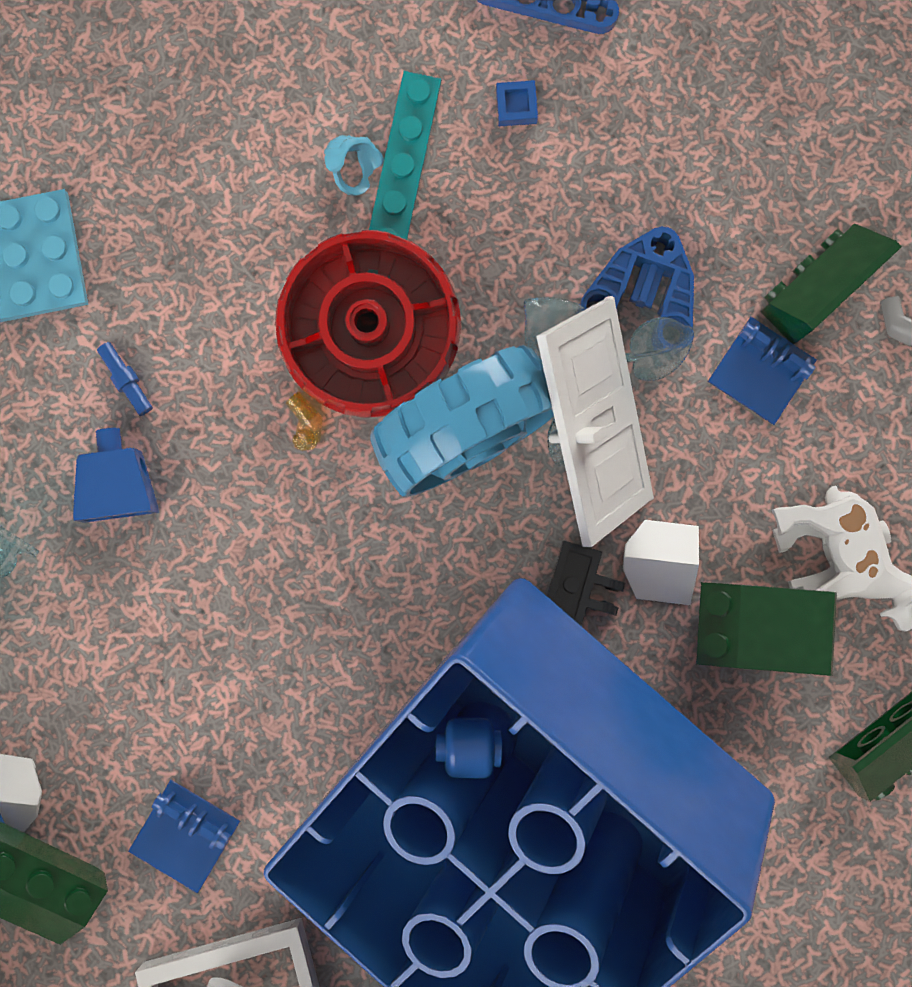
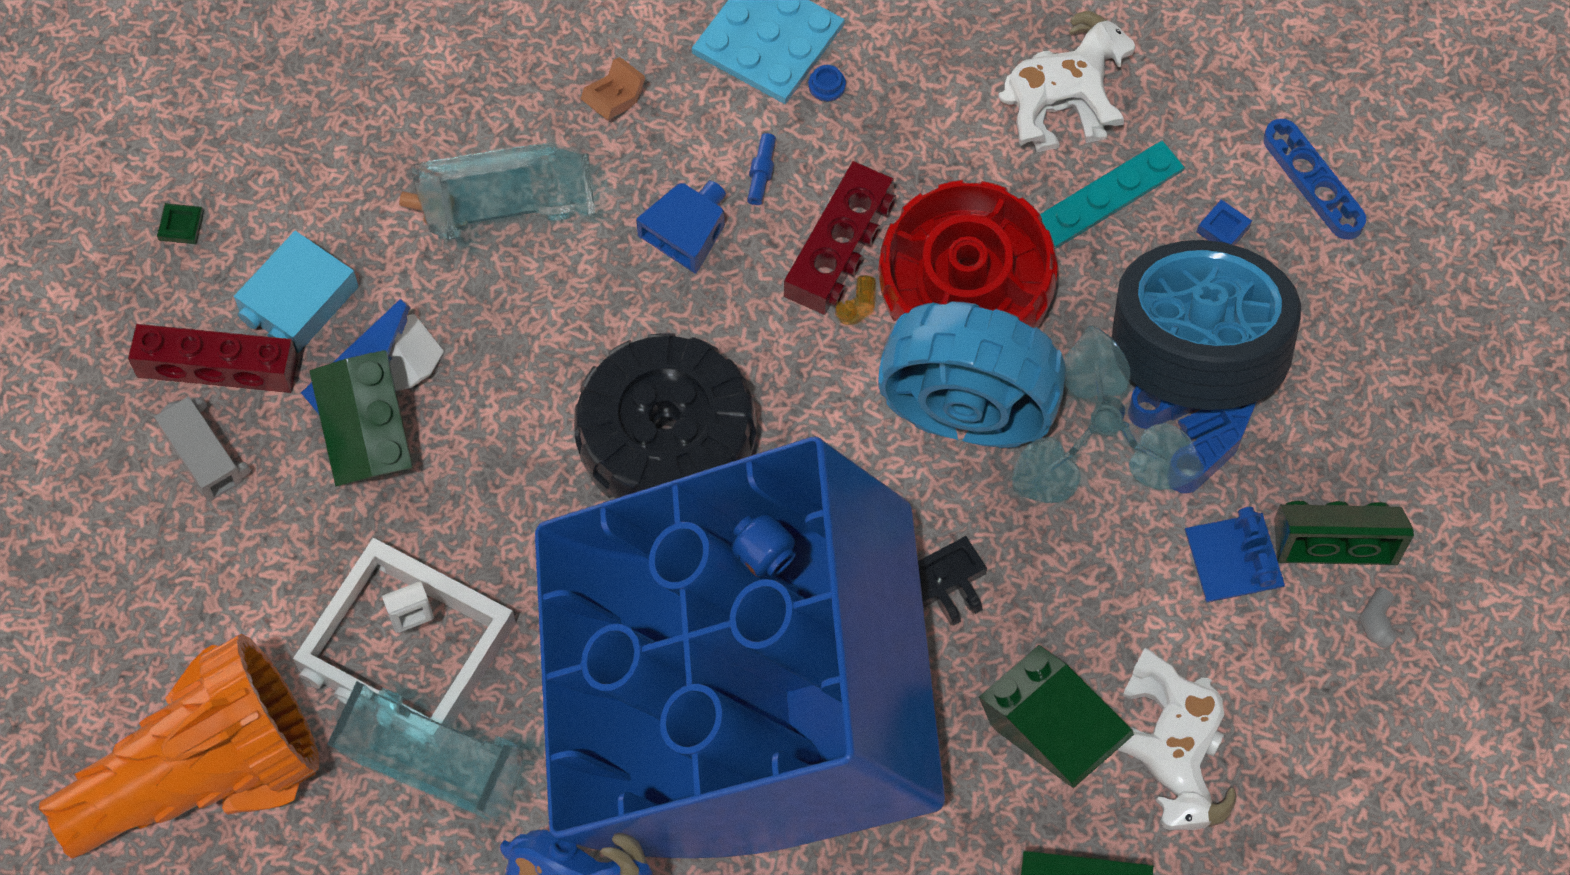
camera: 45 degrees right, 20 degrees down
(104, 257) = (827, 83): none -> blue plate
(184, 836) = (493, 492): blue hinge -> none
(215, 328) = (858, 189): none -> dark red brick
(216, 678) = (655, 386): none -> black wheel
(288, 84) = (1068, 80): none -> white animal
(368, 157) = (1080, 172): medium azure piece -> none
(581, 167) = (1206, 324): none -> wheel
(596, 419) = (1067, 455): white door -> none
(662, 561) = (1023, 617): white slope -> none

